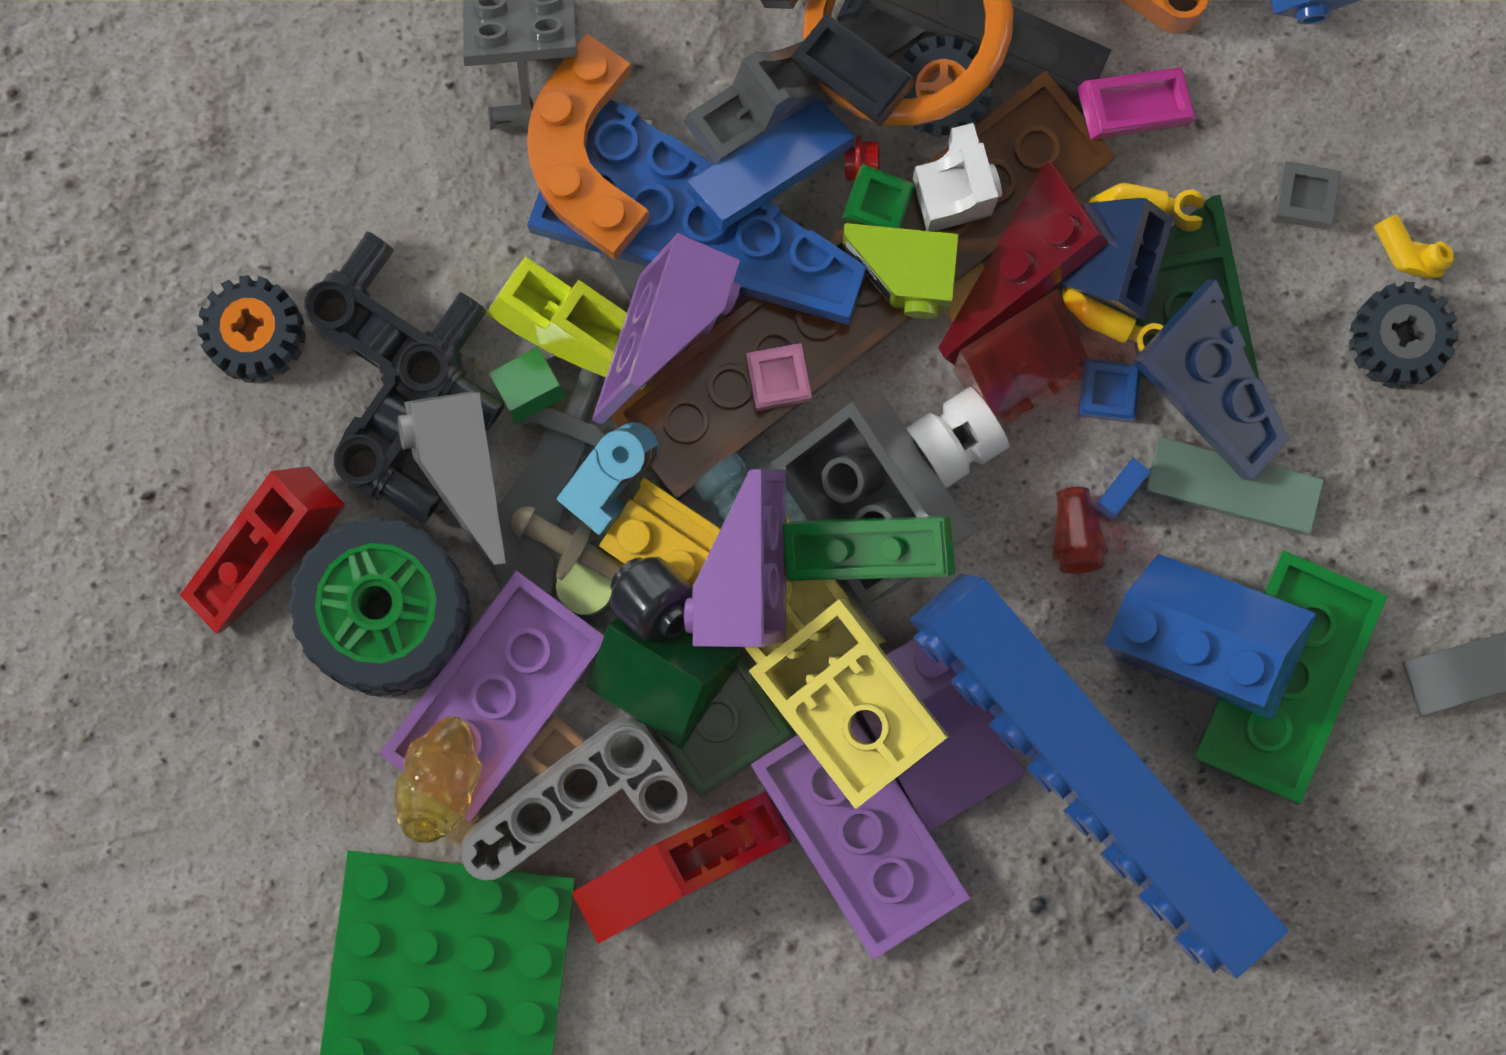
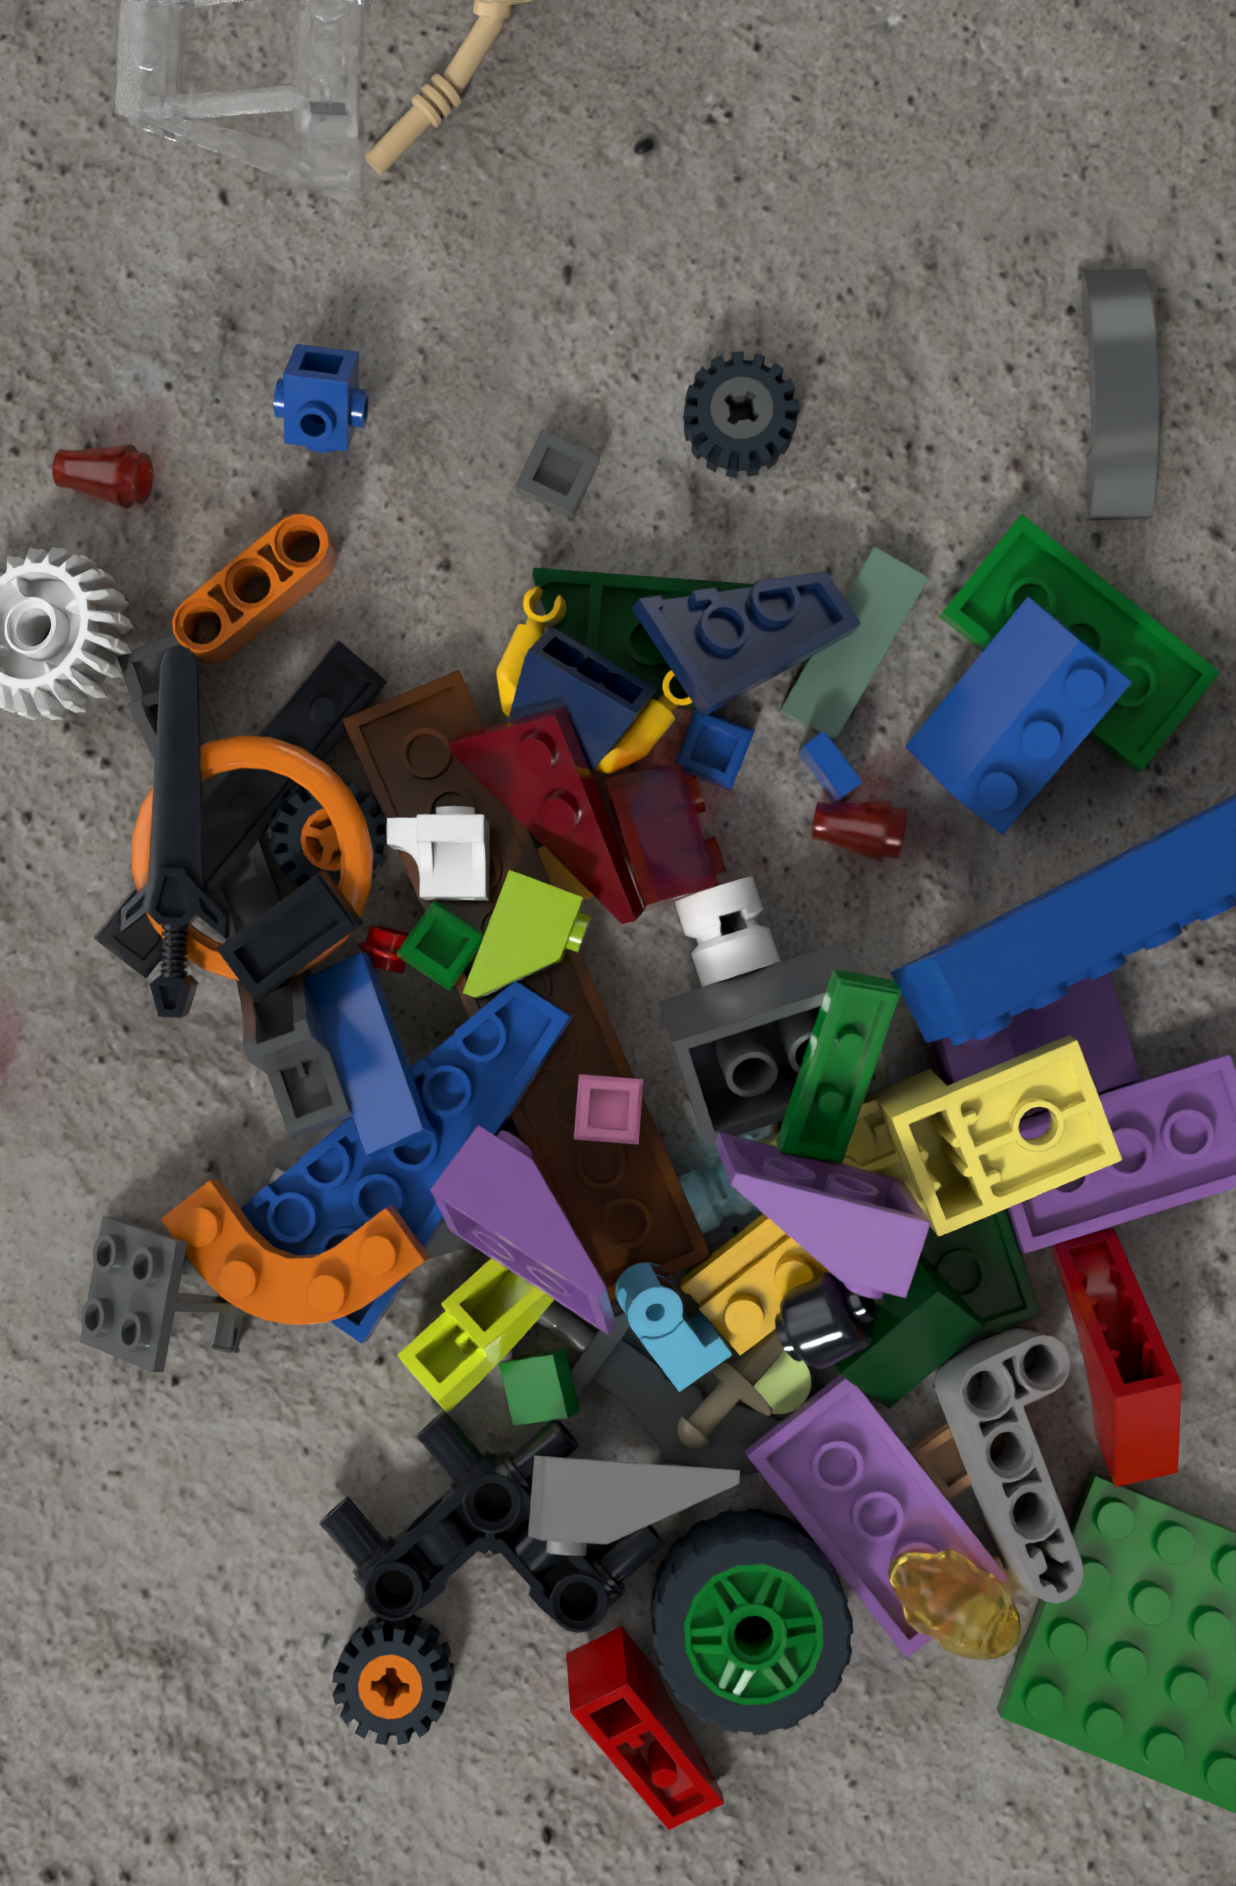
camera: 75 degrees left, 5 degrees up
(1136, 103) = (405, 630): dark pink tile -> none
(1413, 257) = (654, 380): yellow arm -> none

